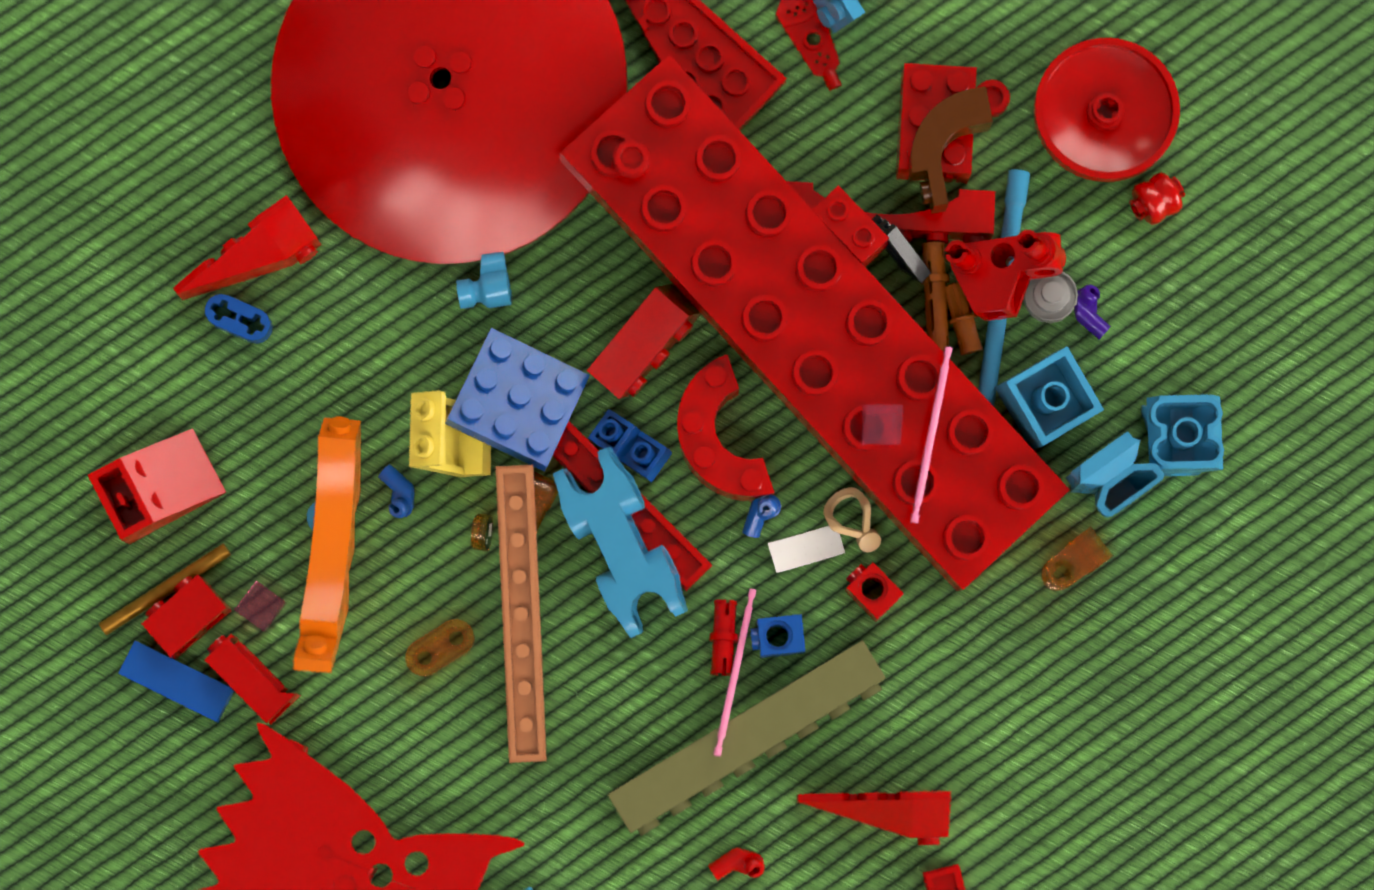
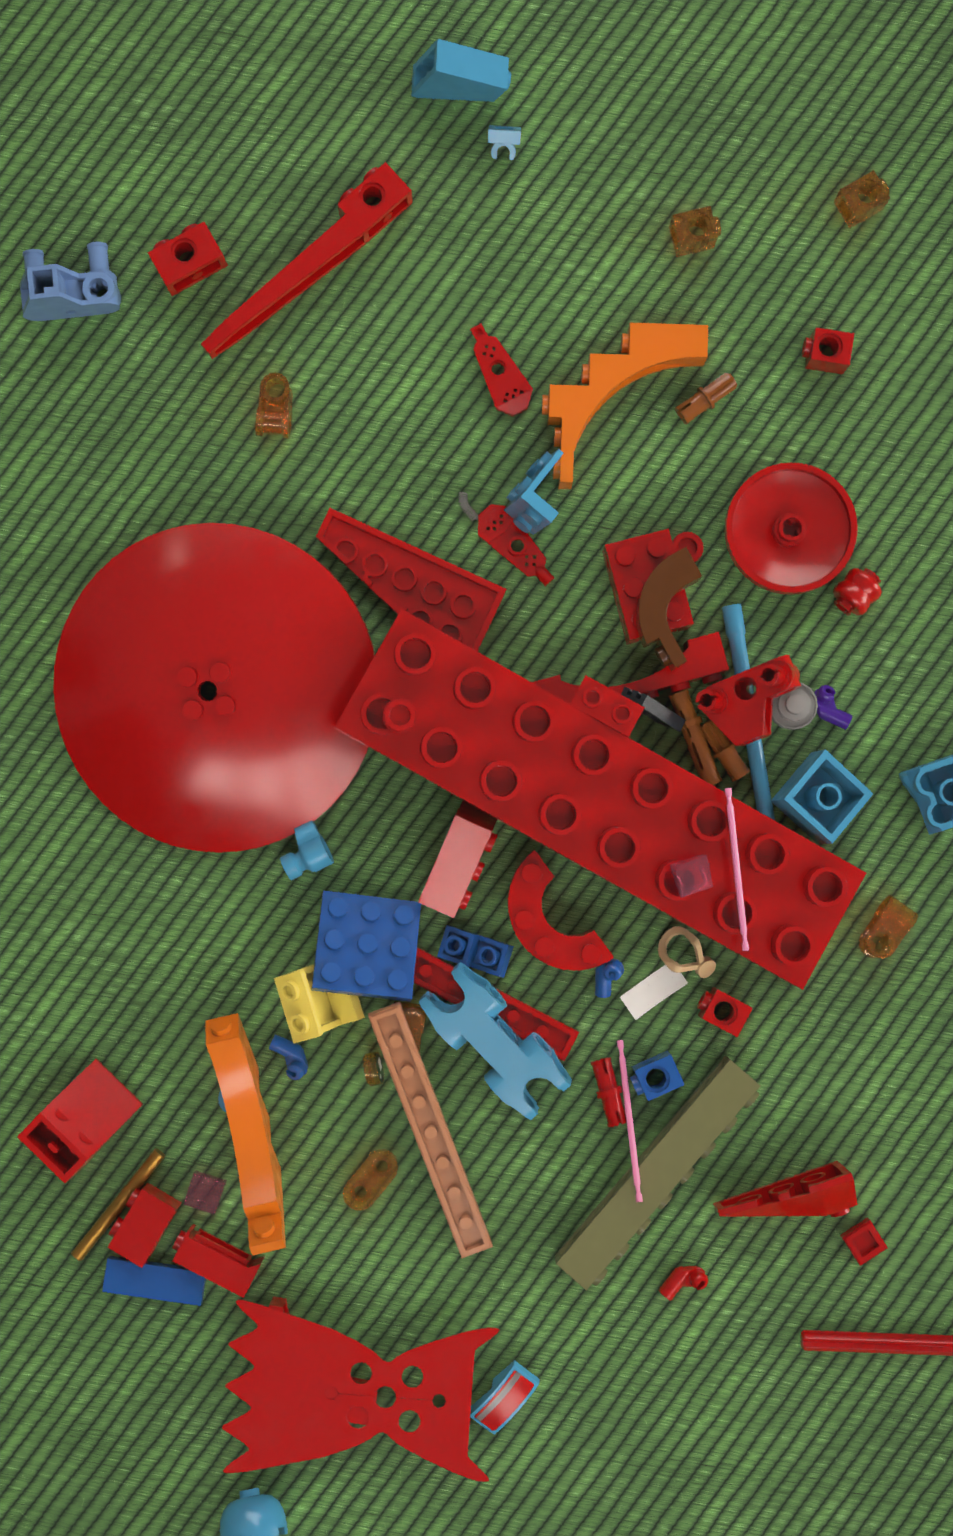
camera: 15 degrees left, 5 degrees up
(241, 310) = (103, 942): blue beam -> none
(275, 242) = (109, 876): red wedge -> none
(1114, 476) = (901, 849): dark azure piece -> none

